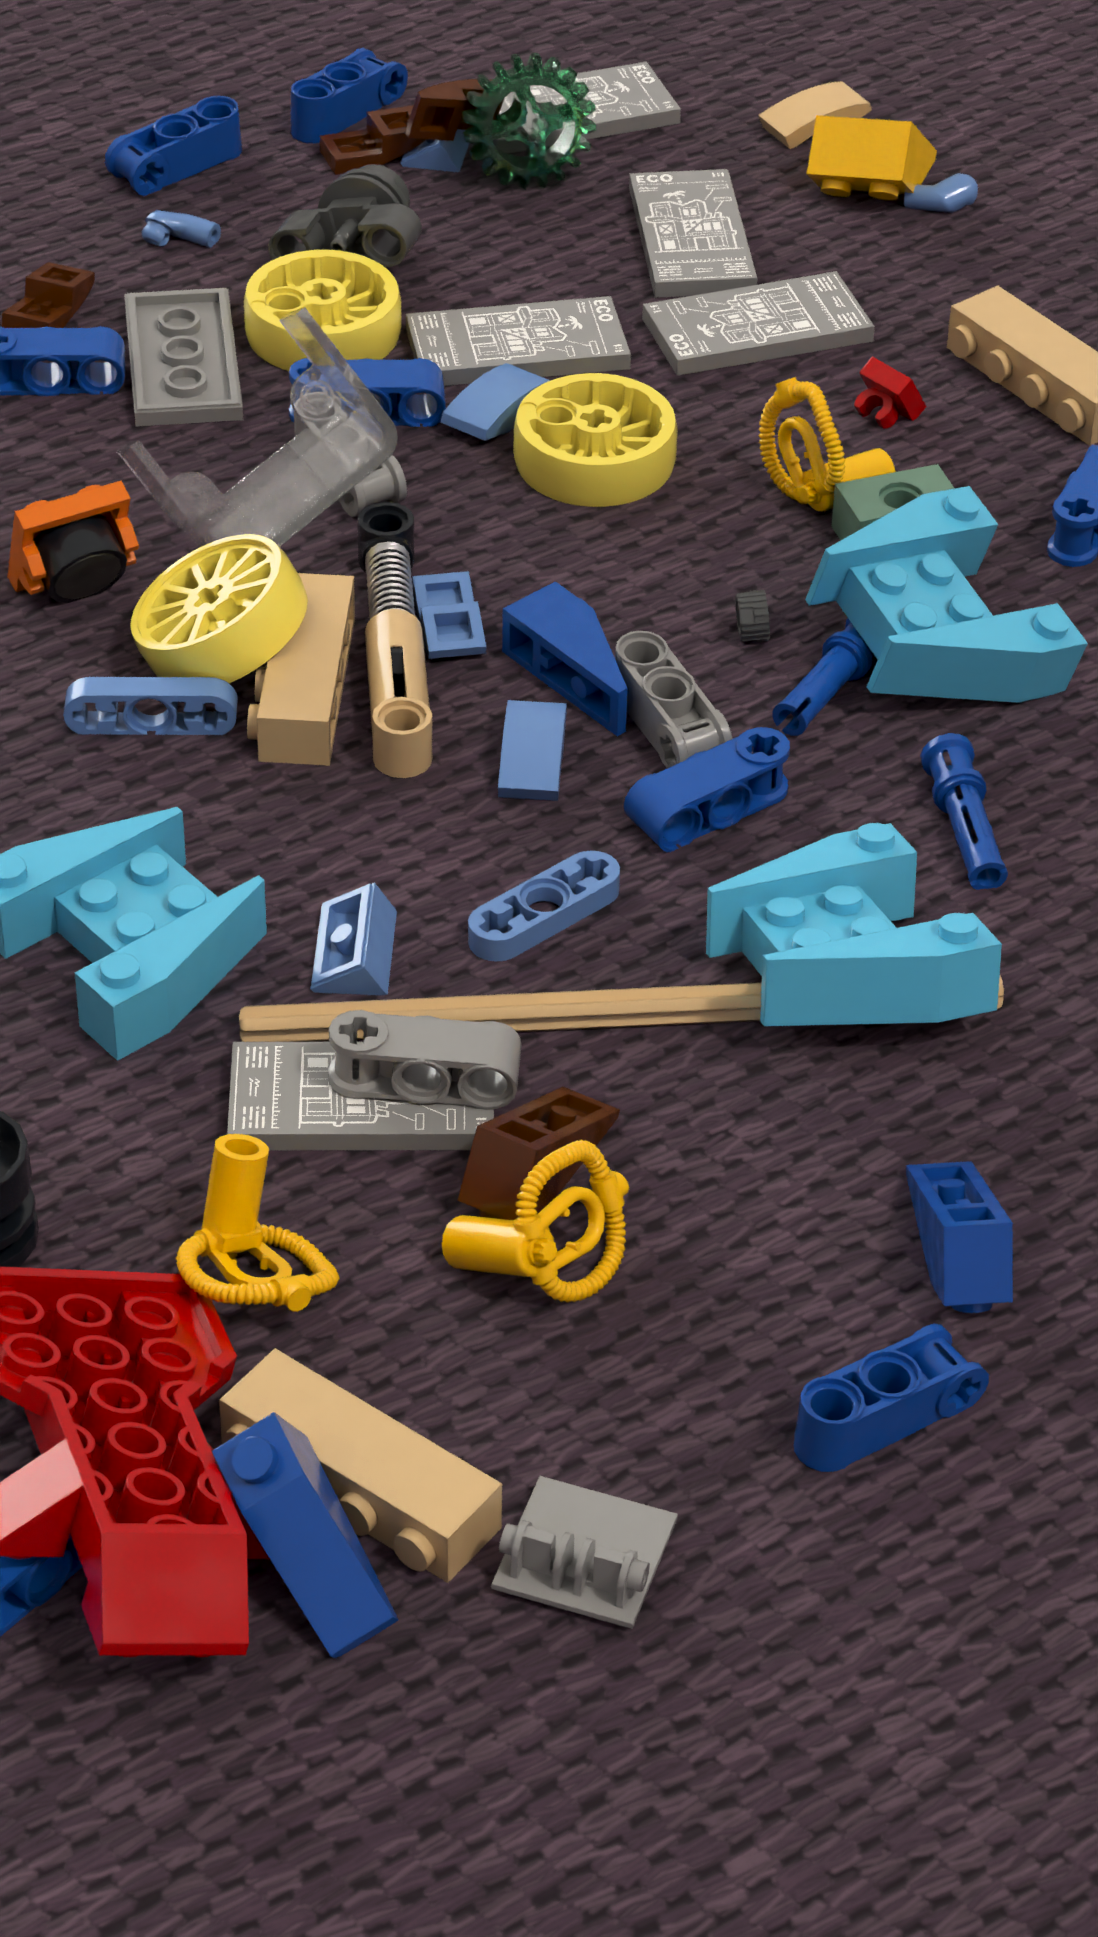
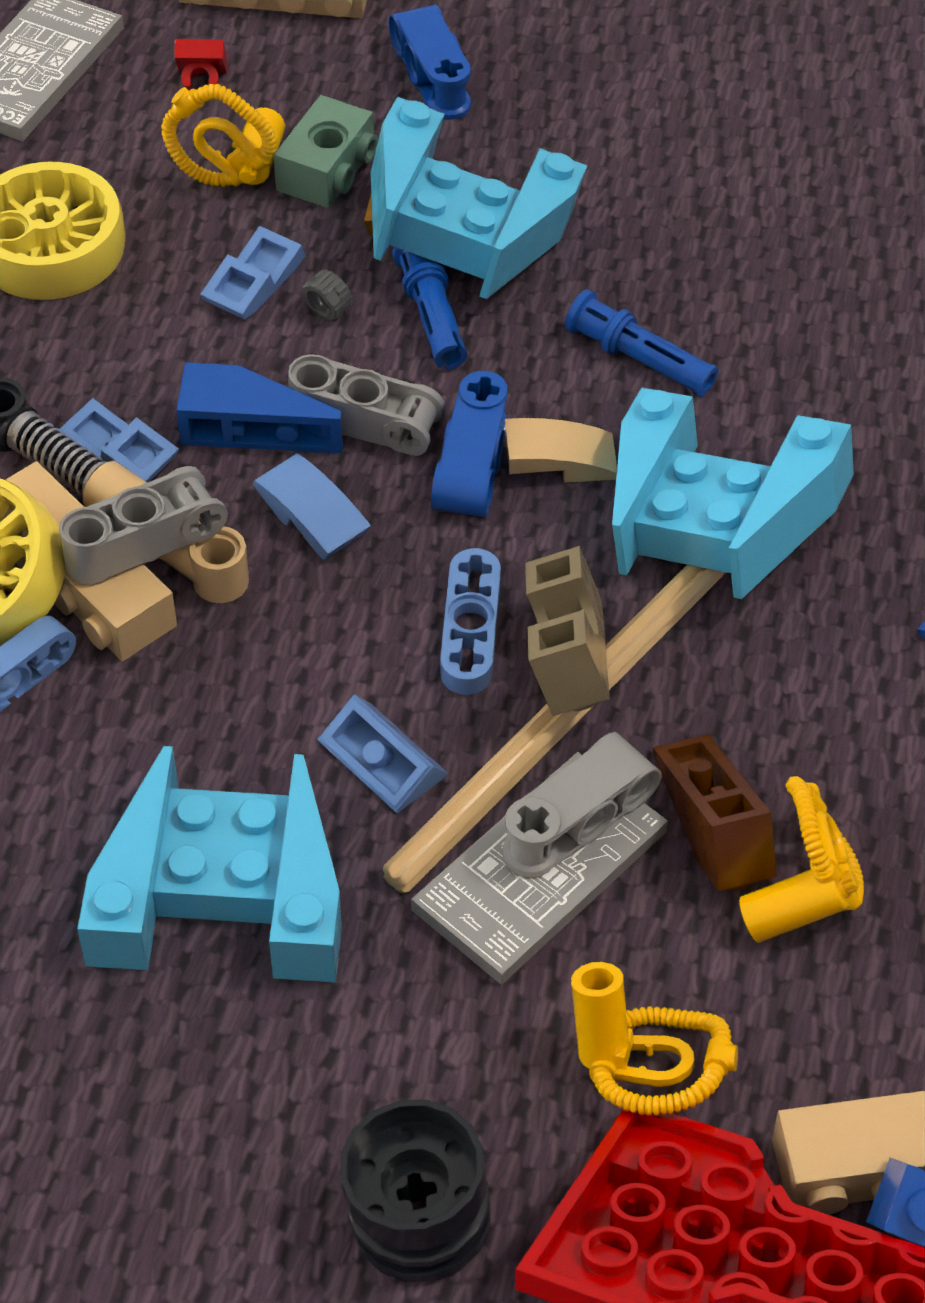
camera: 45 degrees left, 10 degrees up
(351, 653) = (139, 526): none -> light grey piece
(557, 951) = (569, 639): none -> dark tan arch
(699, 572) = (249, 280): none -> medium blue slope
(769, 822) = (559, 445): none -> tan slope

